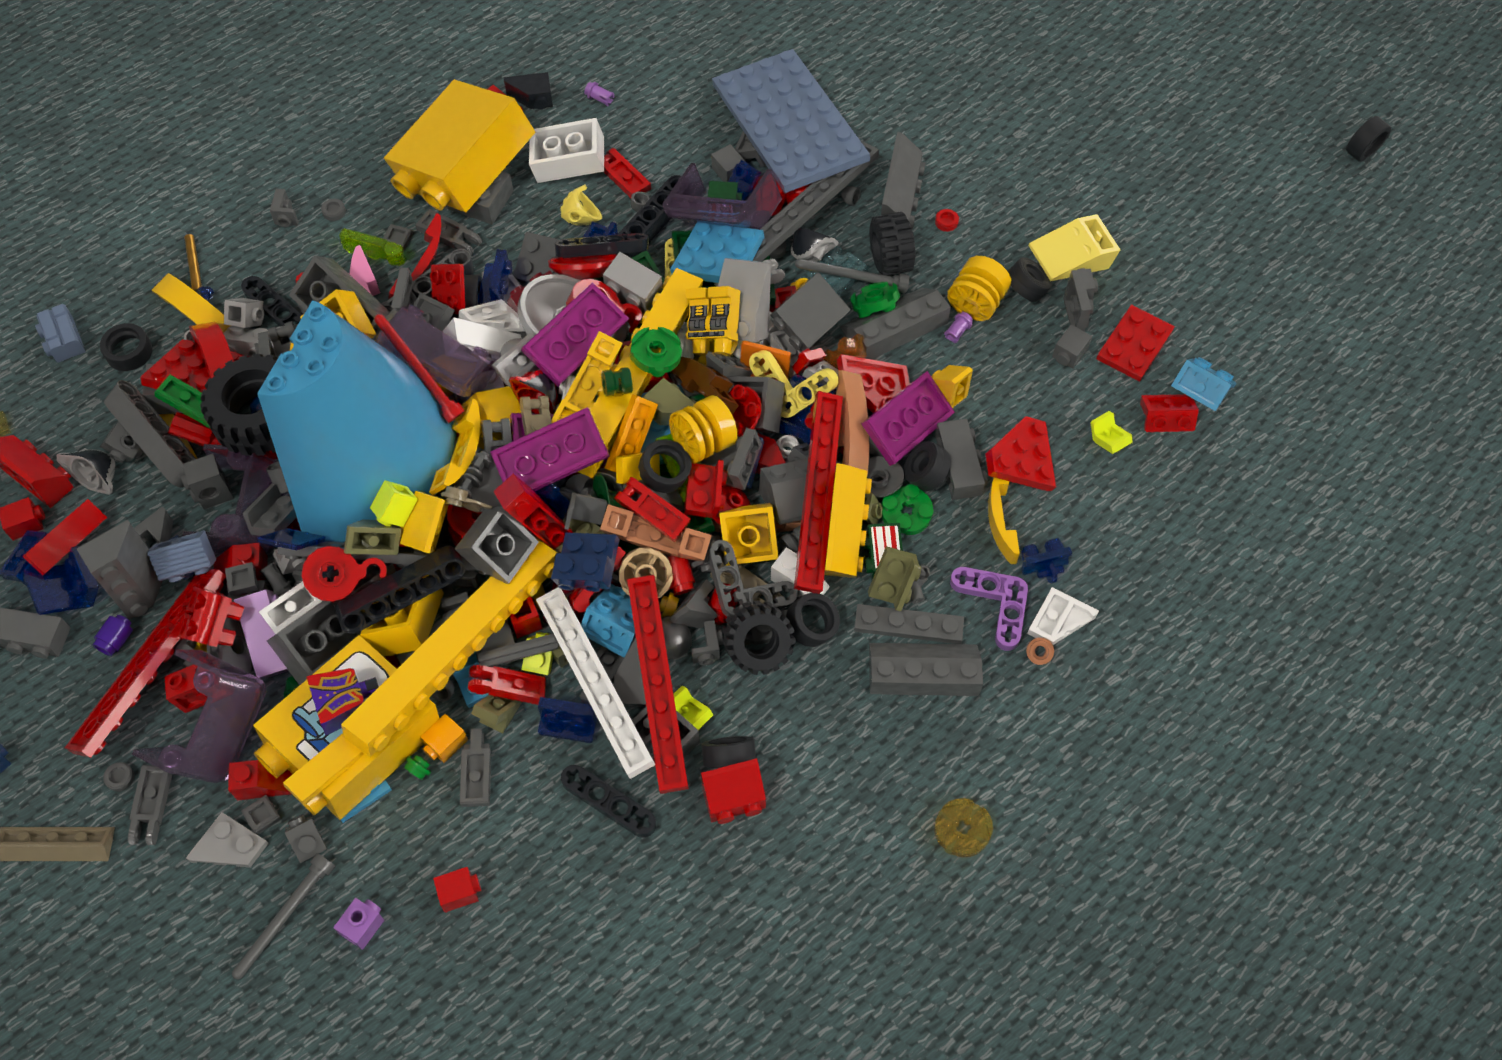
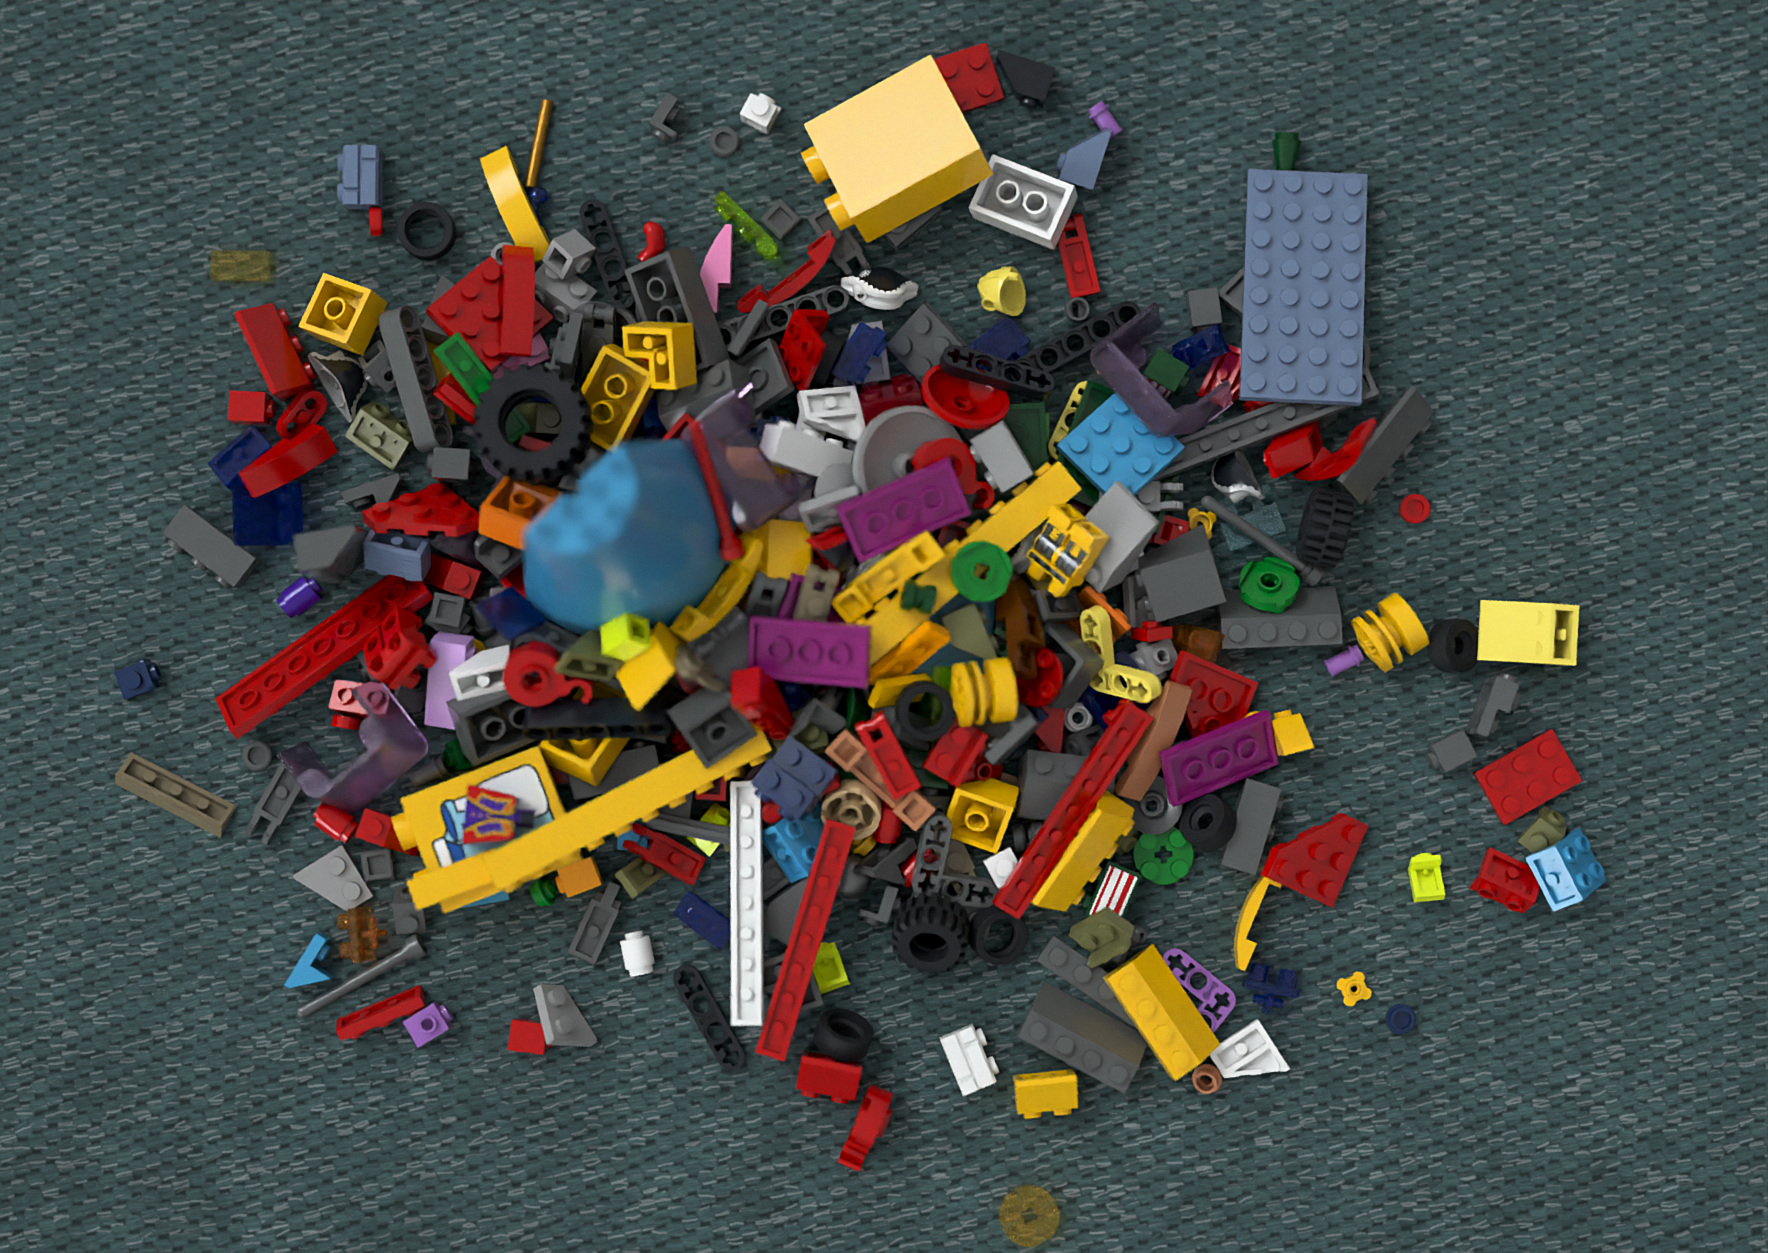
camera: 25 degrees right, 25 degrees up
(62, 505) = (300, 414): none -> red plate
(75, 419) = (343, 314): none -> yellow brick
(82, 356) = (376, 221): none -> red tile
(139, 494) = (380, 434): none -> olive bracket
(188, 711) = (346, 722): none -> red tile
(193, 516) = (425, 510): none -> red plate
(208, 795) = (335, 822): none -> red brick
(227, 930) = (306, 969): none -> dark azure slope
(261, 478) = (513, 509): none -> orange slope
(270, 876) = (362, 934): none -> clear orange hips
(311, 937) = (380, 1013): none -> red plate
(350, 173) = (759, 112): none -> white brick
(478, 859) = (561, 1018): none -> light grey wing
(486, 241) = (880, 288): none -> white hat
(521, 776) = (637, 953): none -> white brick
(598, 108) = (1084, 160): none -> sand blue slope
(729, 59) = (1286, 150): none -> dark green cone
(788, 810) = (869, 1123): none -> red piece
(839, 209) = (1293, 449): none -> red slope
(842, 726) = (968, 1059): none -> white brick
(866, 212) = (1331, 465): none -> red slope
(919, 717) = (1045, 1092): none -> yellow slope
(973, 615) = (1162, 1012): none -> yellow slope
(1108, 541) = (1345, 986): none -> yellow plate
(1157, 539) = (1400, 1018): none -> dark blue plate
(1169, 368) = (1544, 830): none -> olive bracket

